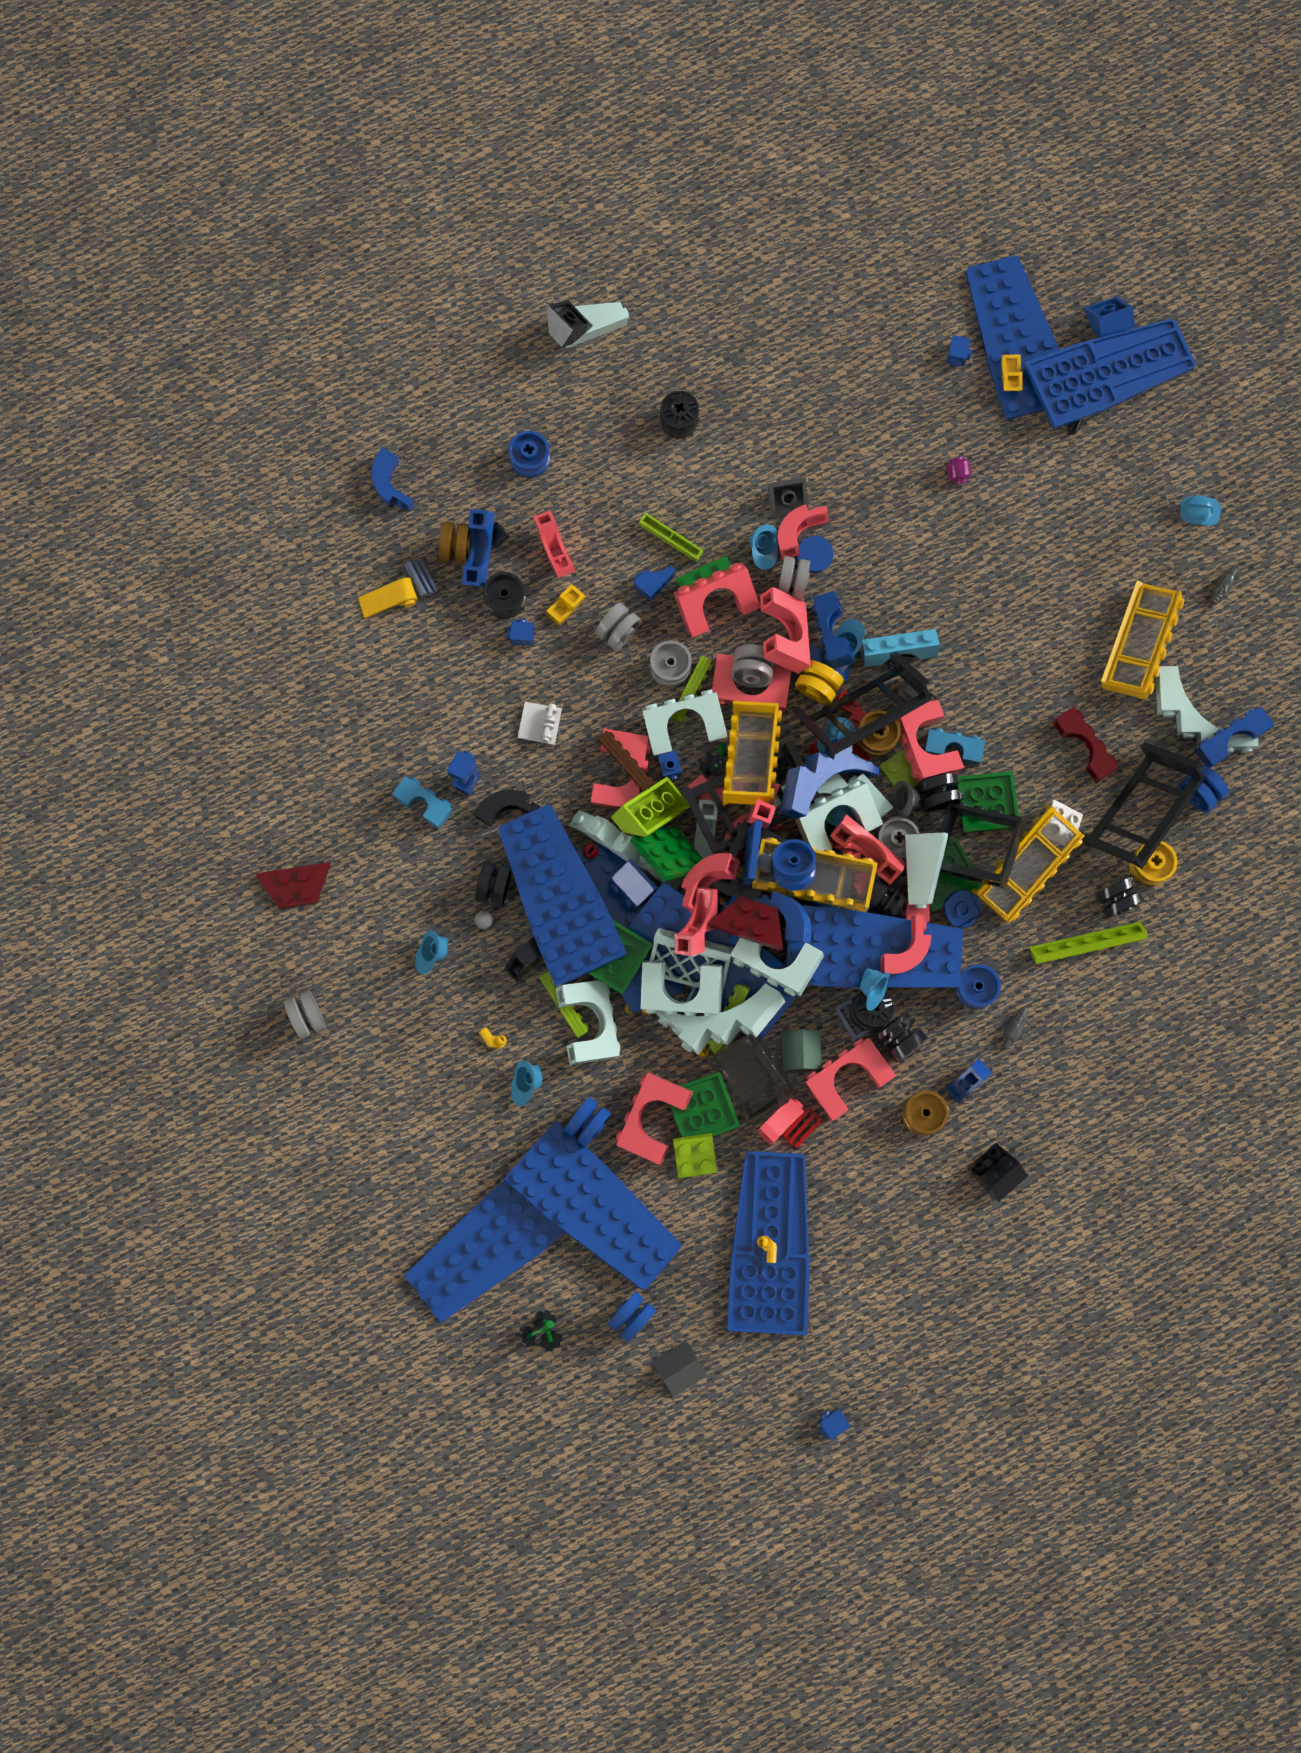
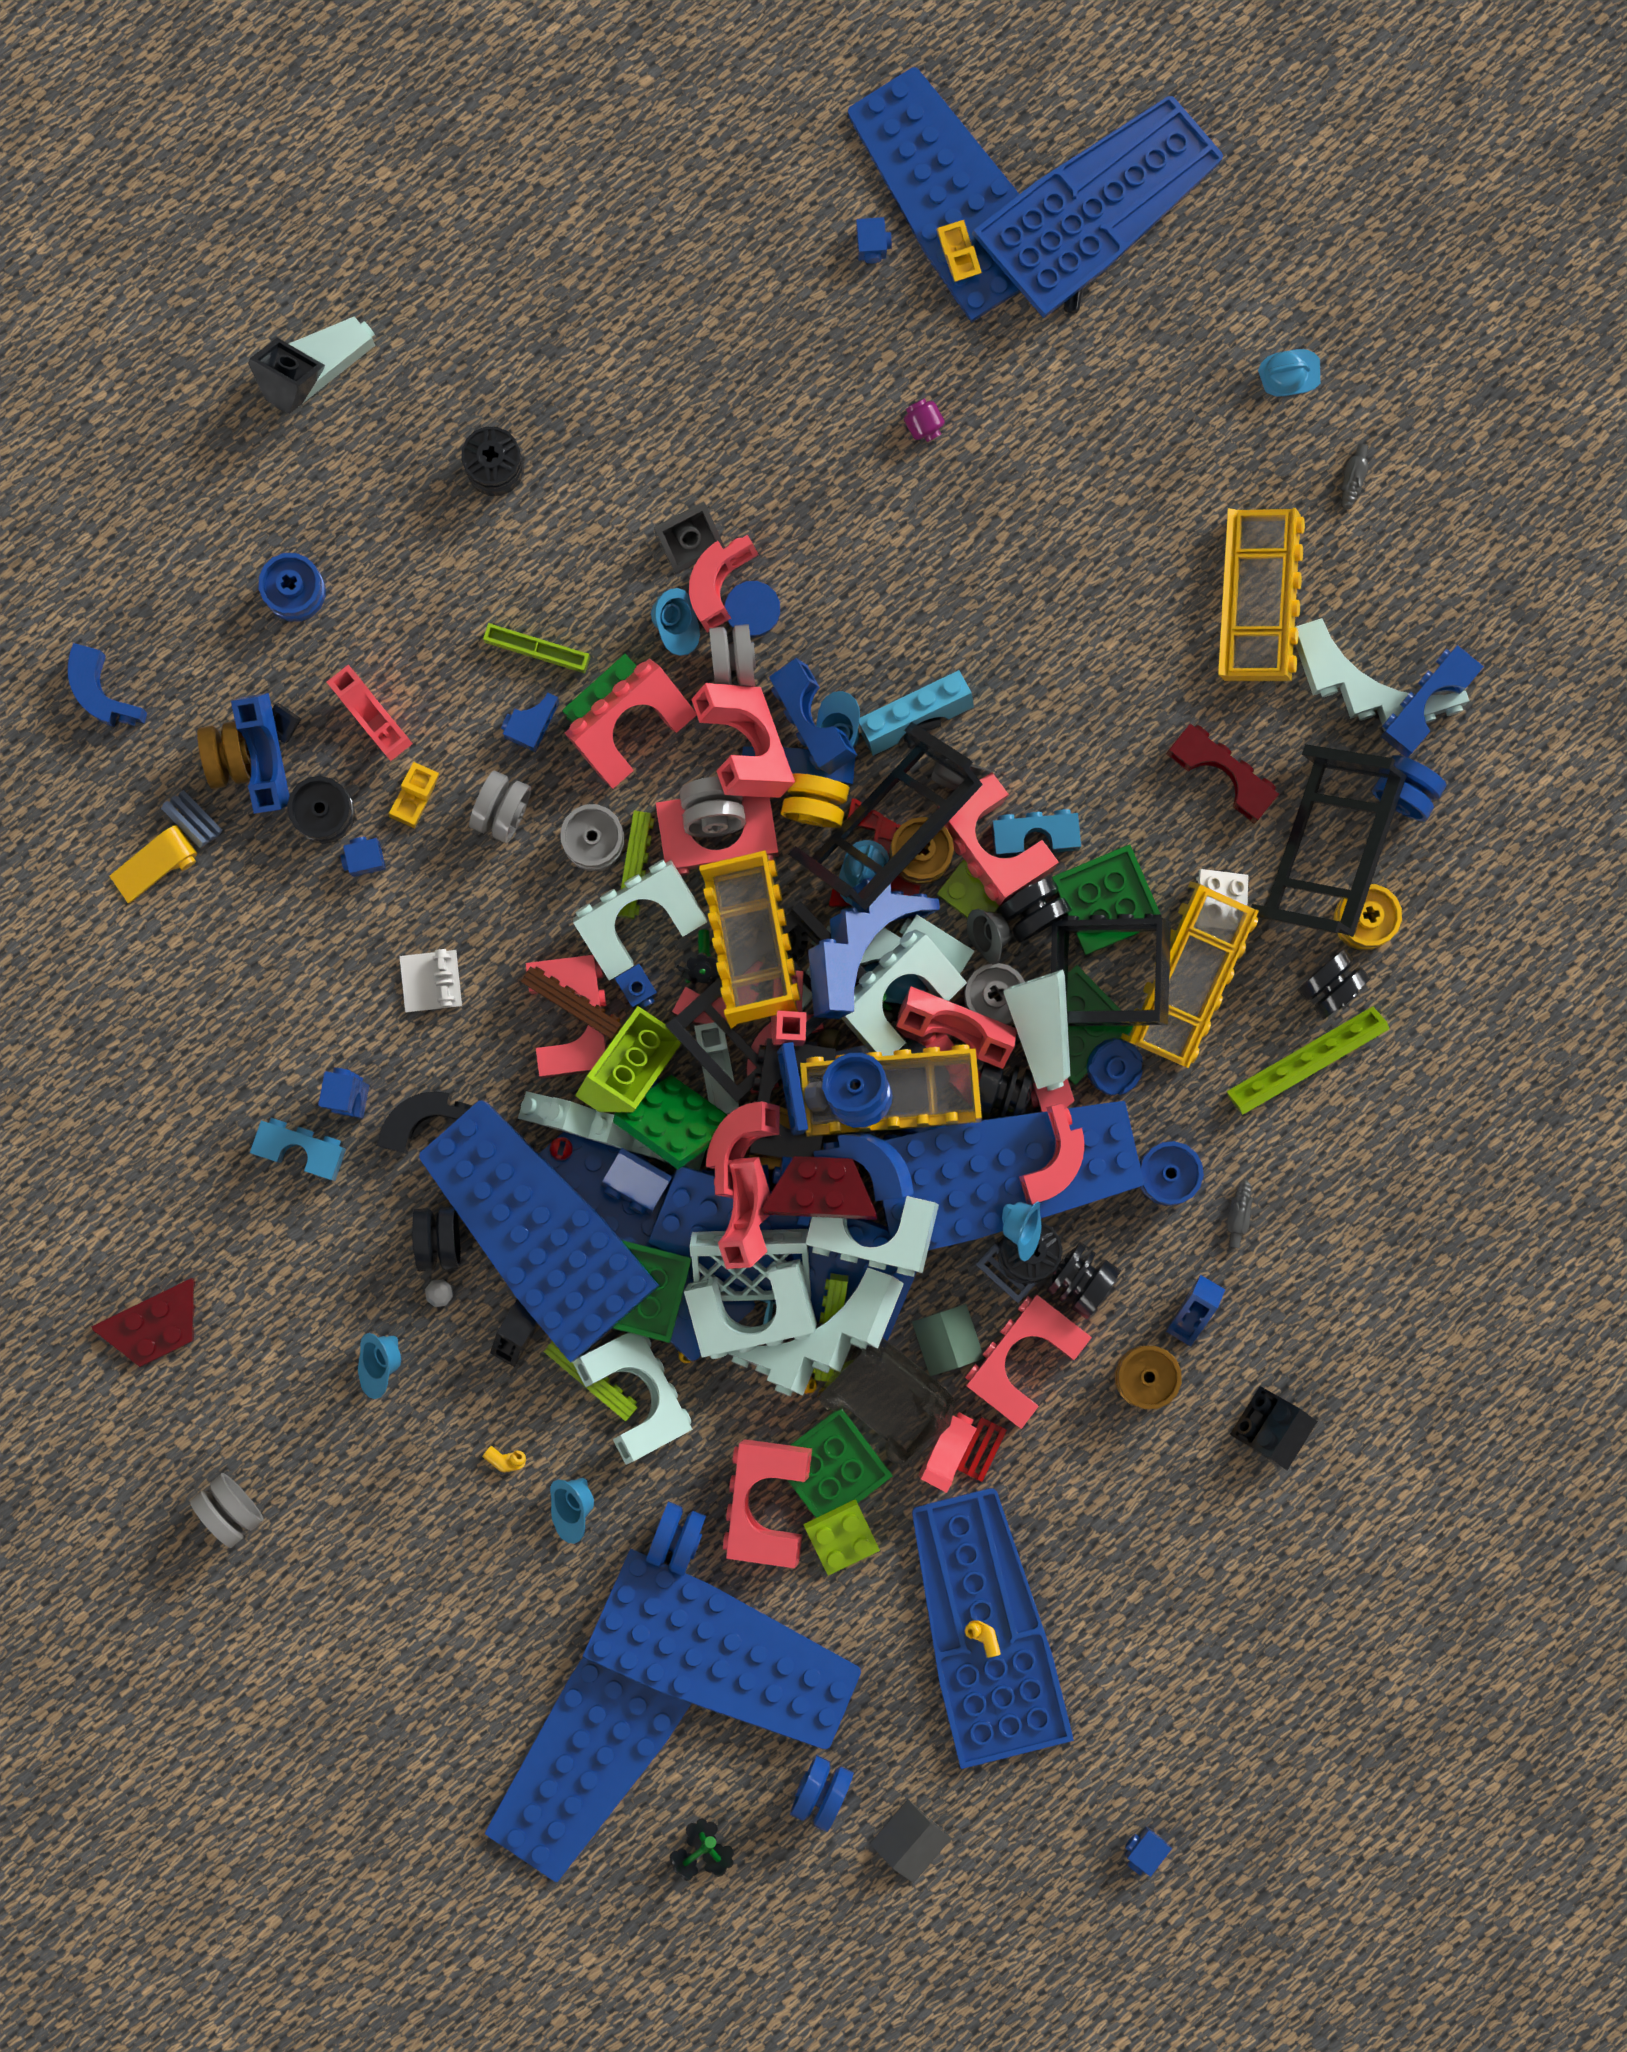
camera: 15 degrees left, 5 degrees up
(1110, 316) = (1077, 120): blue slope -> none

